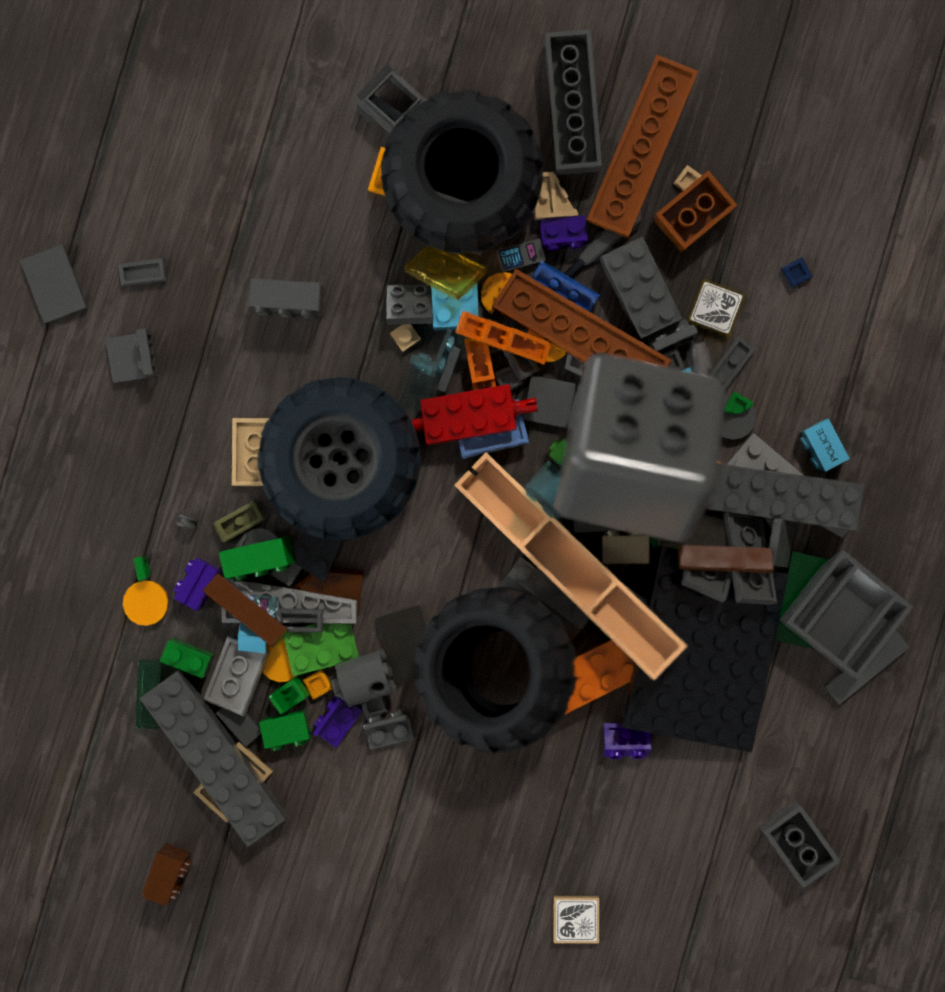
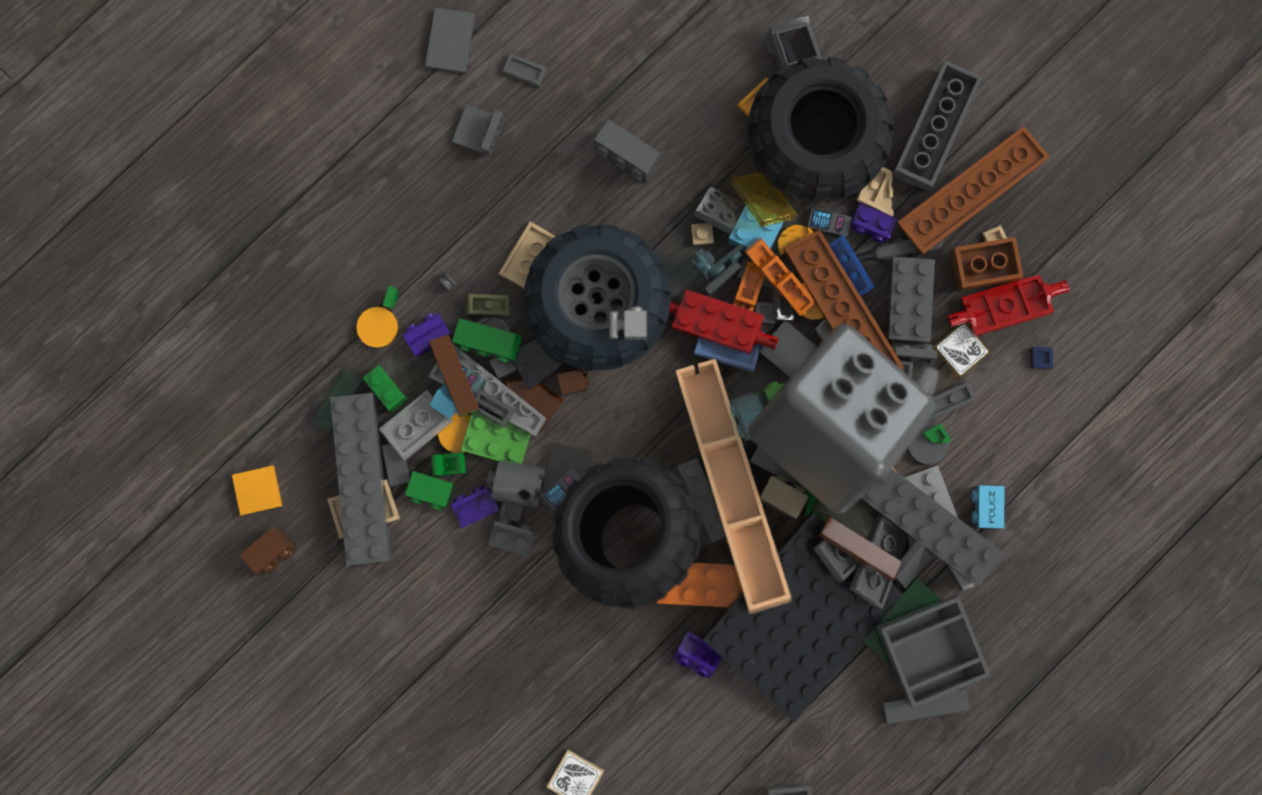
camera: 25 degrees right, 5 degrees down
(122, 821) = (257, 490): none -> light orange tile
(318, 683) = (476, 469): light orange tile -> none
(362, 550) = (573, 382): none -> reddish brown brick
(389, 470) = (633, 324): none -> light grey brick
(406, 666) = (556, 493): none -> tile
(736, 240) = (1007, 305): none -> red plate

